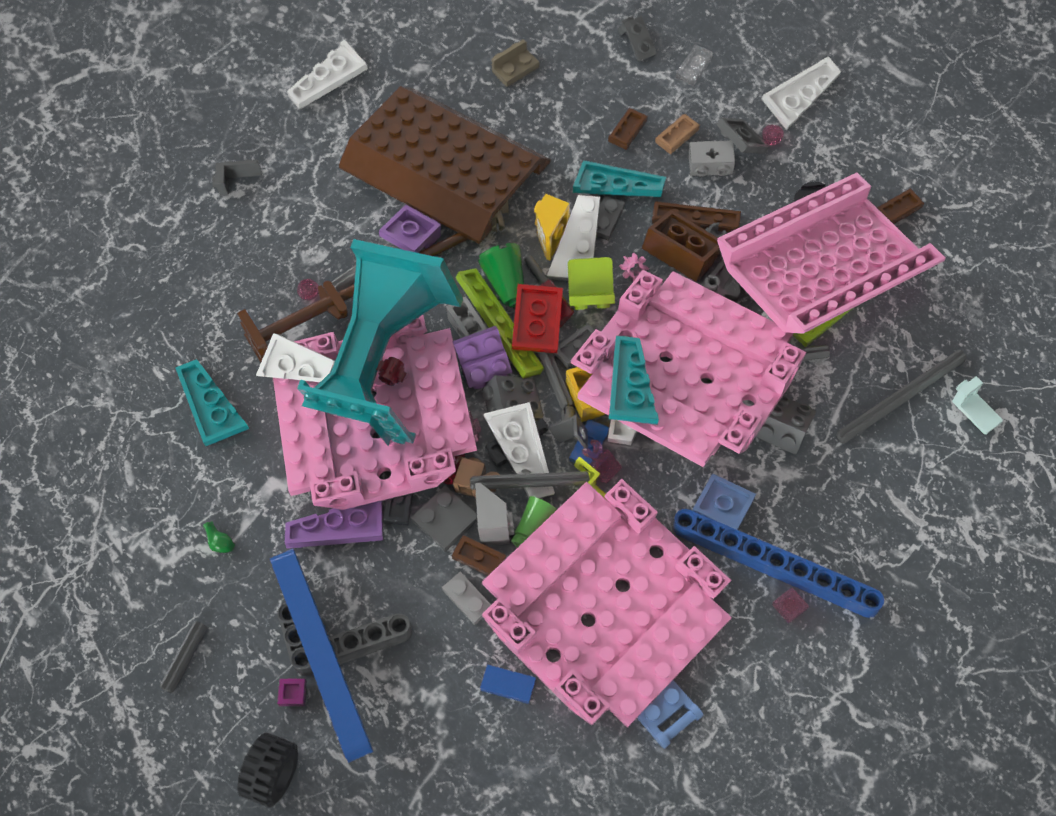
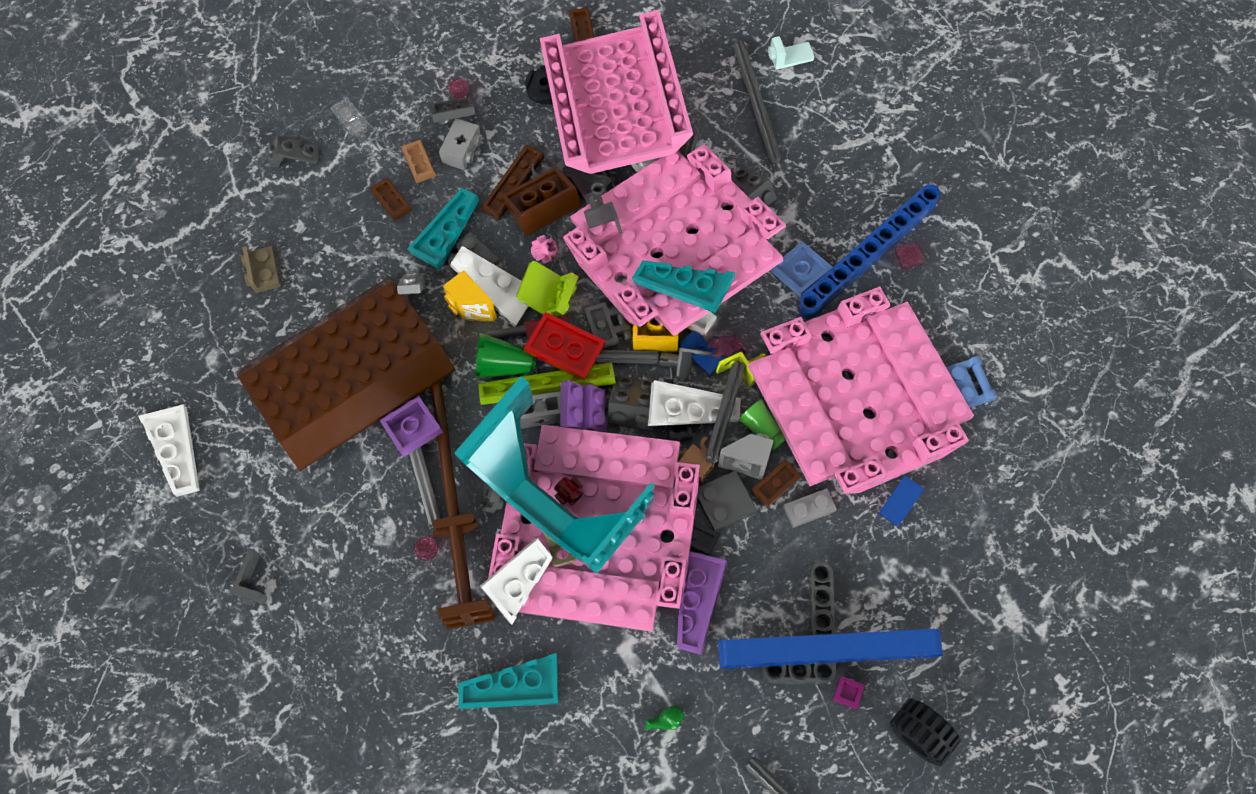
camera: 70 degrees left, 5 degrees up
(547, 175) = (411, 283): none -> light grey plate
(679, 291) = (601, 213): none -> dark grey bracket
(798, 93) = (426, 48): white wing -> none

